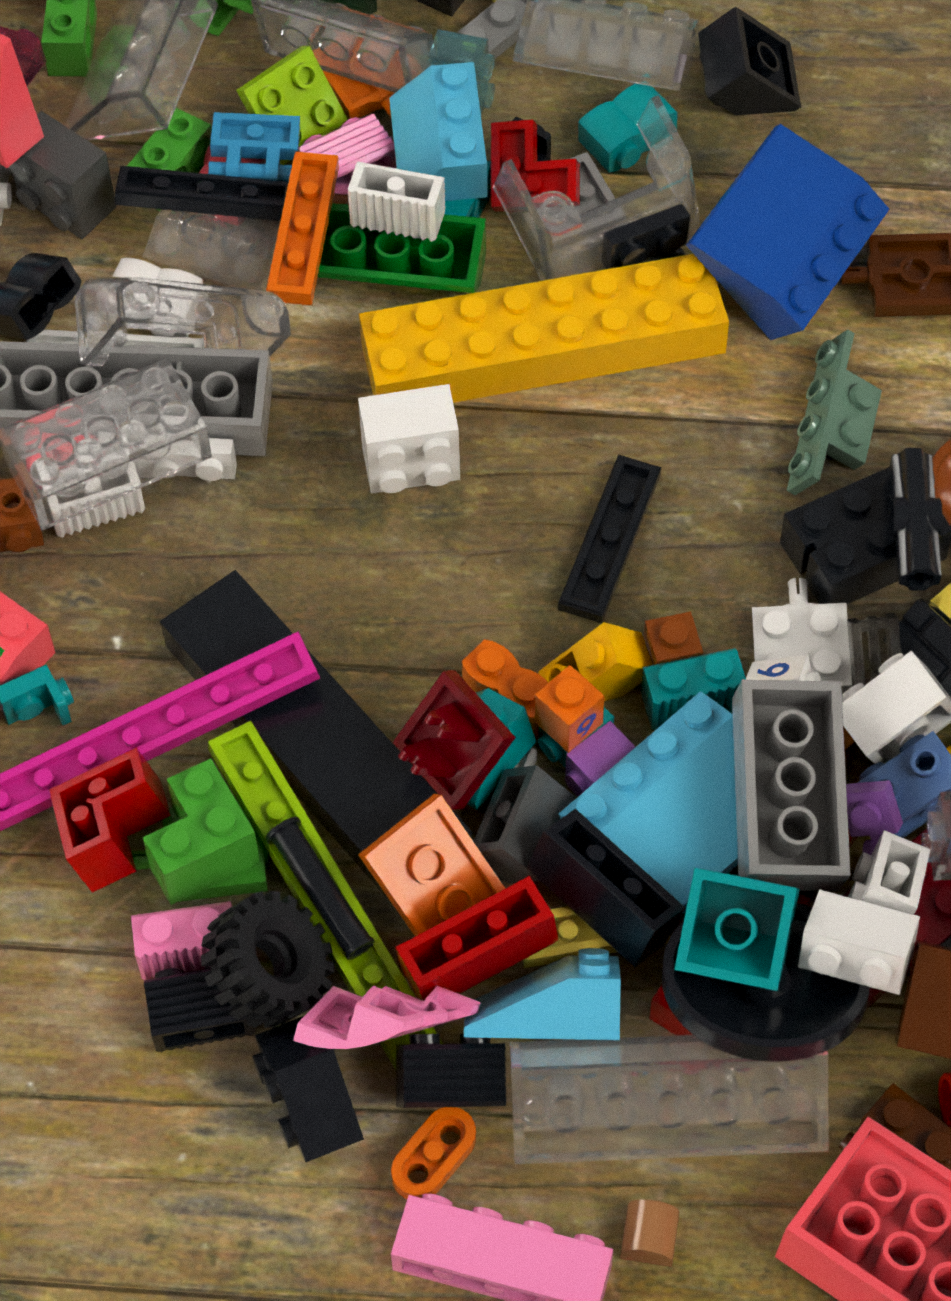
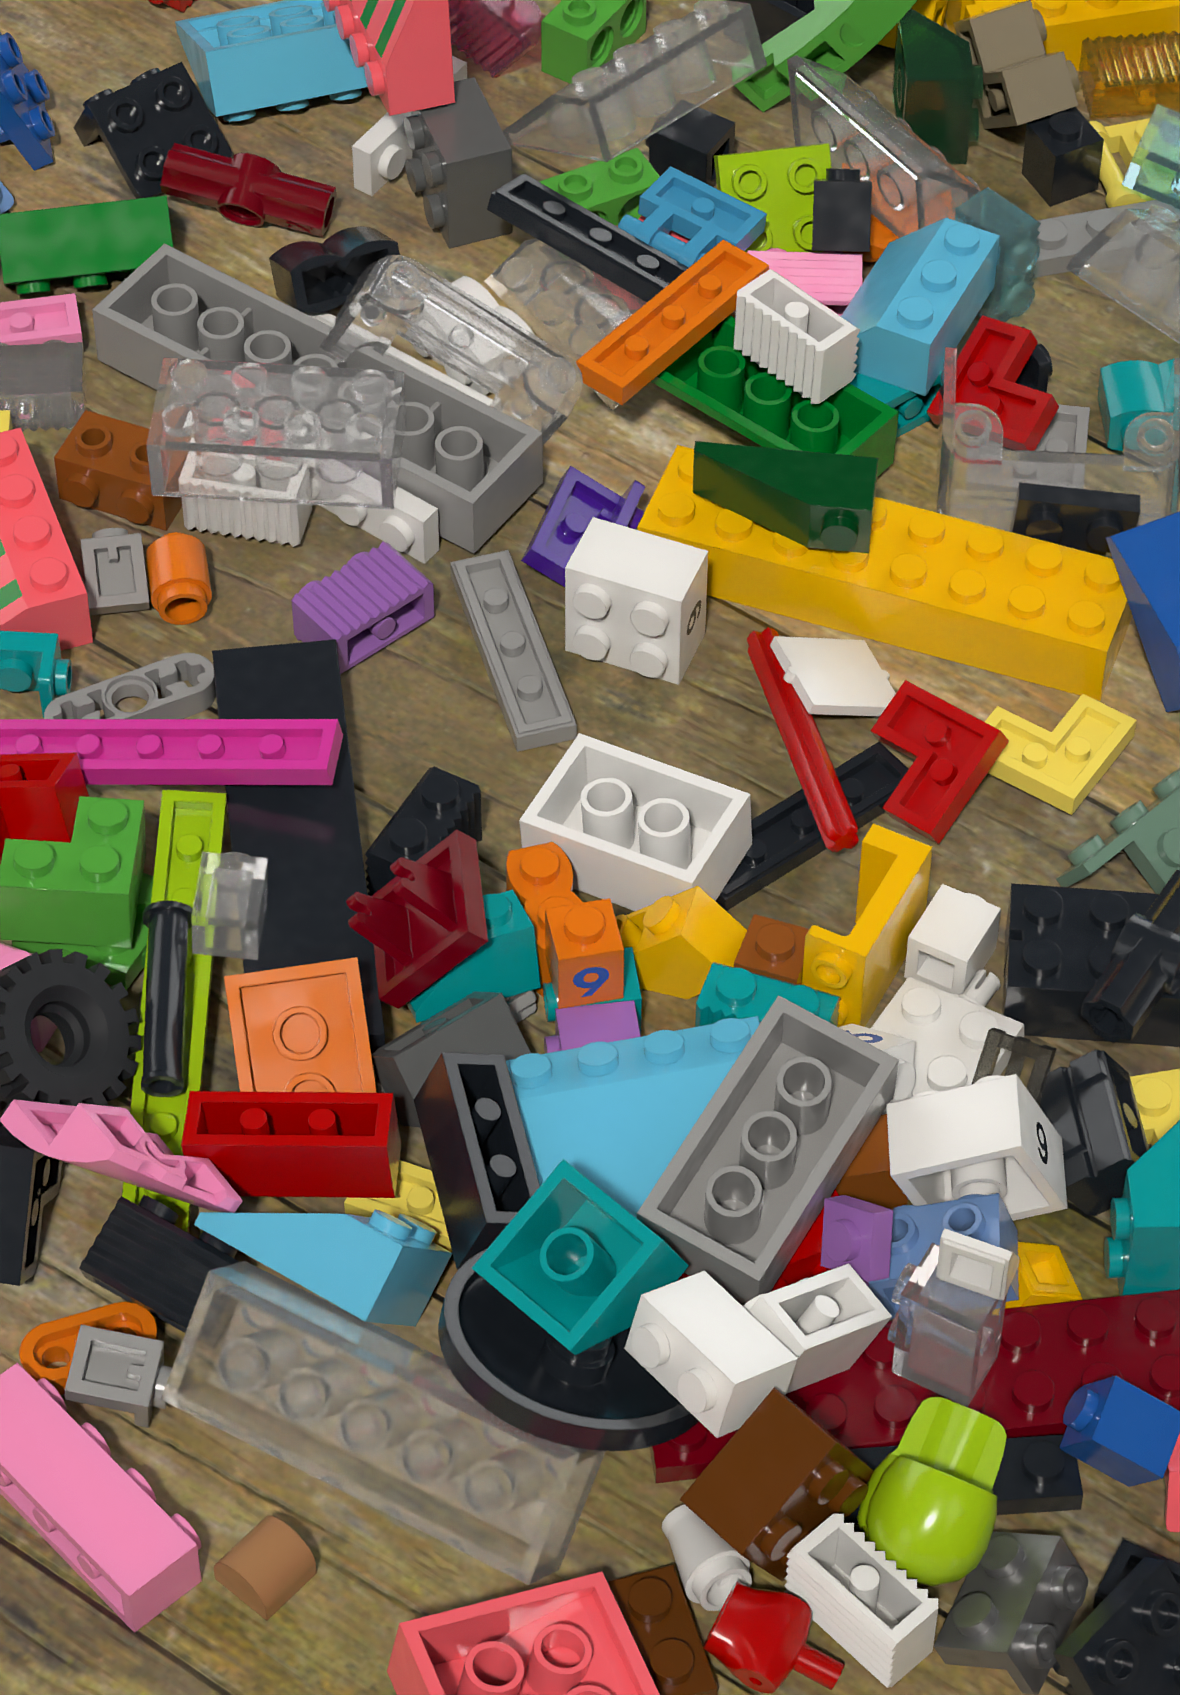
camera: 30 degrees right, 10 degrees down
(41, 593) = (114, 571): none -> light grey bracket
(86, 577) = (179, 578): none -> orange brick
(121, 664) = (167, 675): none -> light grey beam
(205, 88) = (692, 144): none -> black brick
(225, 532) = (364, 604): none -> medium lavender brick
(319, 799) = (229, 905): none -> clear brick
(329, 402) = (568, 516): none -> dark purple bracket
(340, 512) = (513, 651): none -> light grey tile
(347, 91) = (842, 211): none -> black brick
(391, 677) = (425, 818): none -> black brick
(474, 313) = (796, 493): none -> dark green slope
(474, 1162) = (118, 1372): none -> light grey bracket
(524, 598) = (638, 825): none -> white brick
(563, 423) = (834, 675): none -> white piece
(575, 479) = (804, 747): none -> red axle
(678, 442) = (949, 755): none -> red plate
(716, 560) = (888, 907): none -> yellow panel
(736, 413) = (1062, 763): none -> light yellow plate
(763, 570) = (952, 940): none -> white brick
(909, 1069) = (704, 1559): none -> white cone

